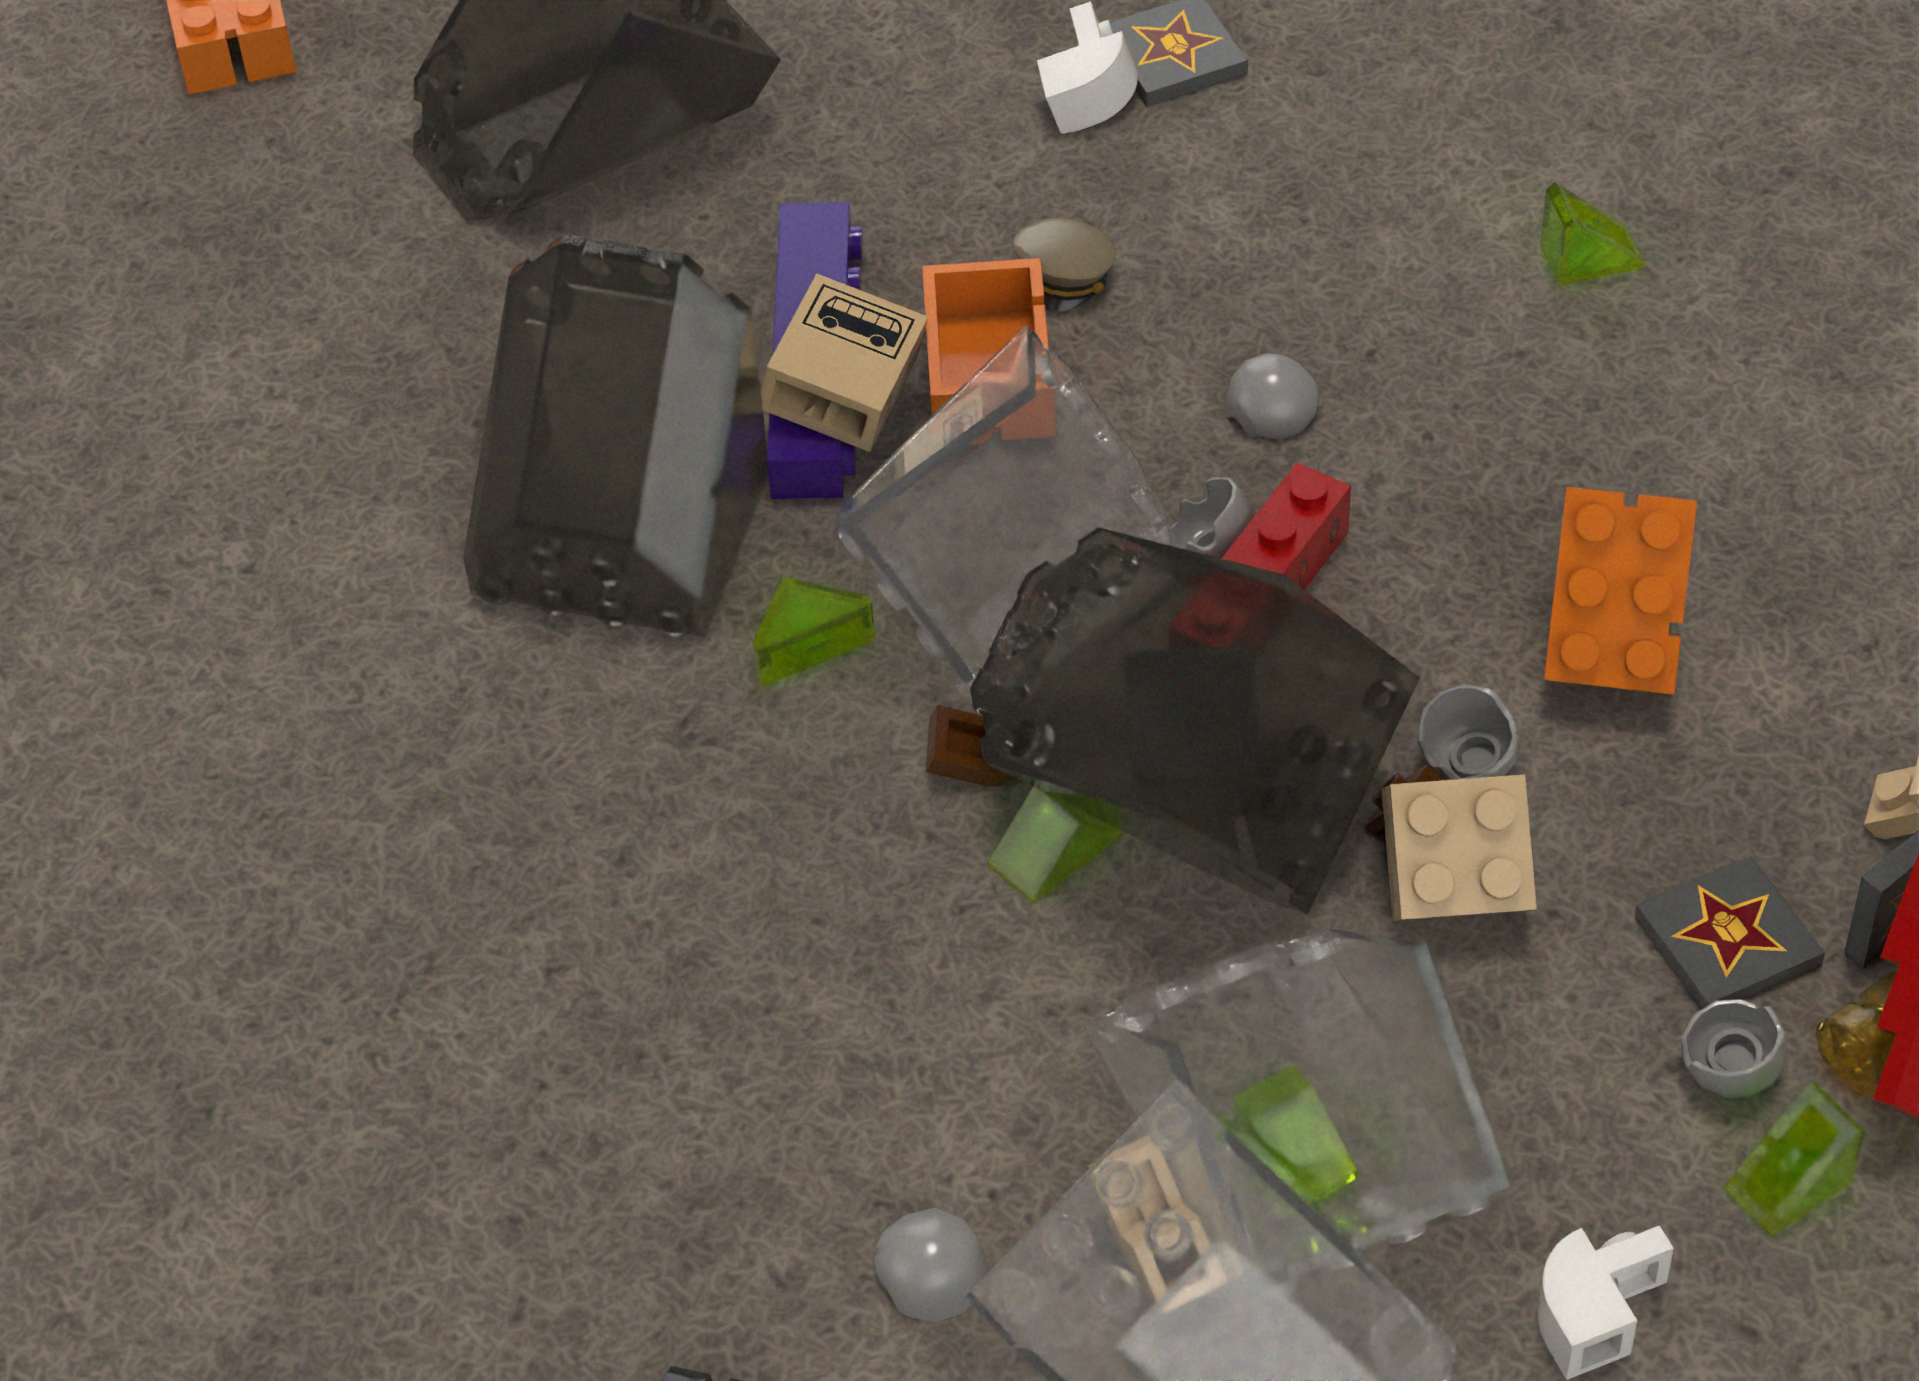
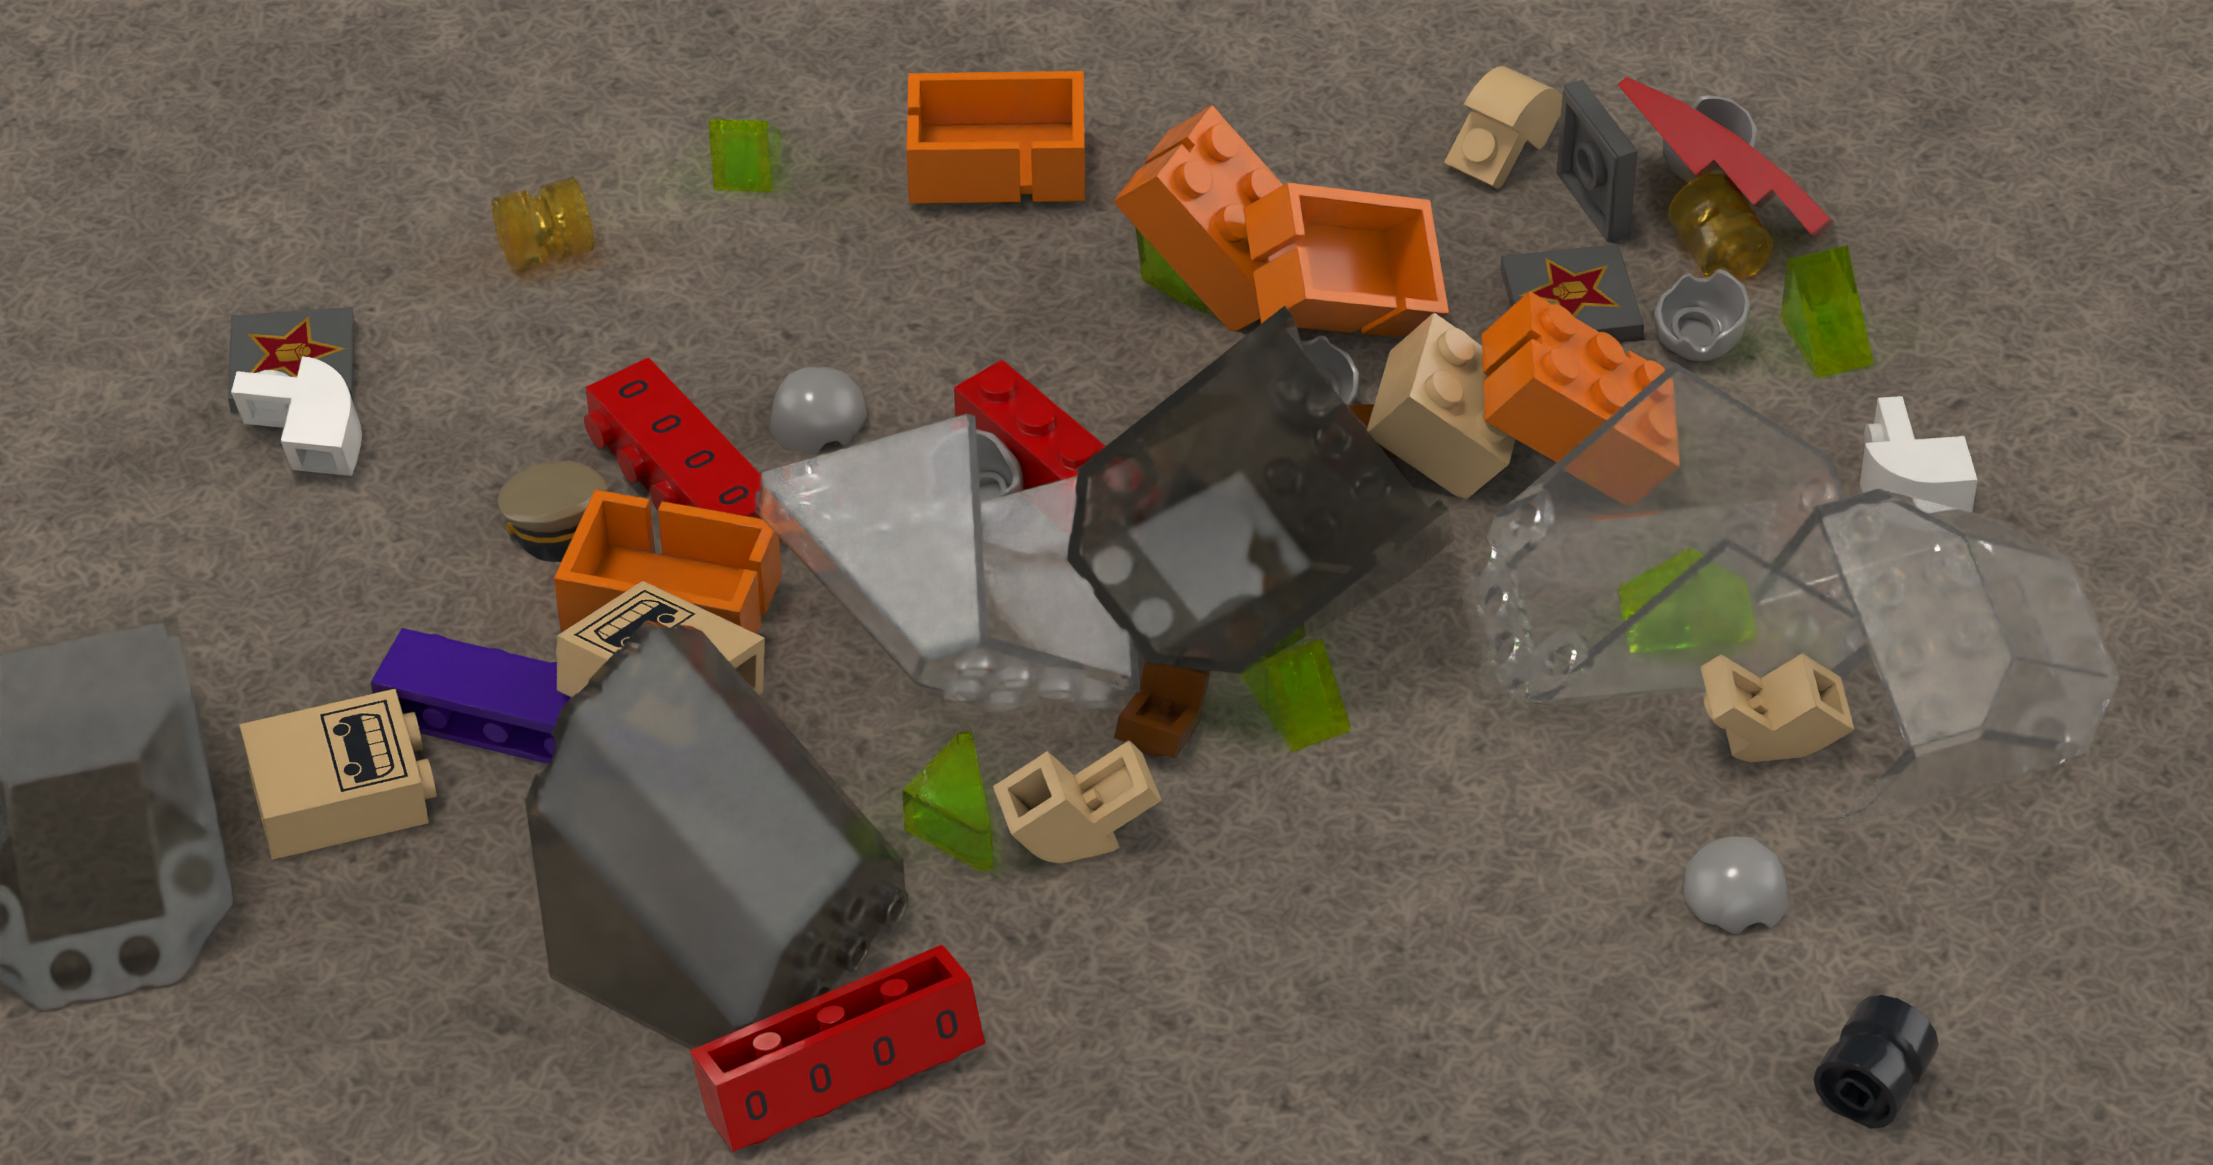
camera: 75 degrees left, 5 degrees down
(485, 624) = (837, 1047): none -> red brick
(699, 211) = (337, 773): none -> tan brick
(819, 705) = (1075, 815): none -> tan brick
(1155, 318) = (668, 442): none -> red brick
(1400, 138) = (543, 224): none -> clear yellow wheel
(1506, 944) = (1555, 376): none -> orange piece
(1602, 696) = (1346, 259): none -> orange piece
(1690, 412) = (995, 137): none -> orange piece

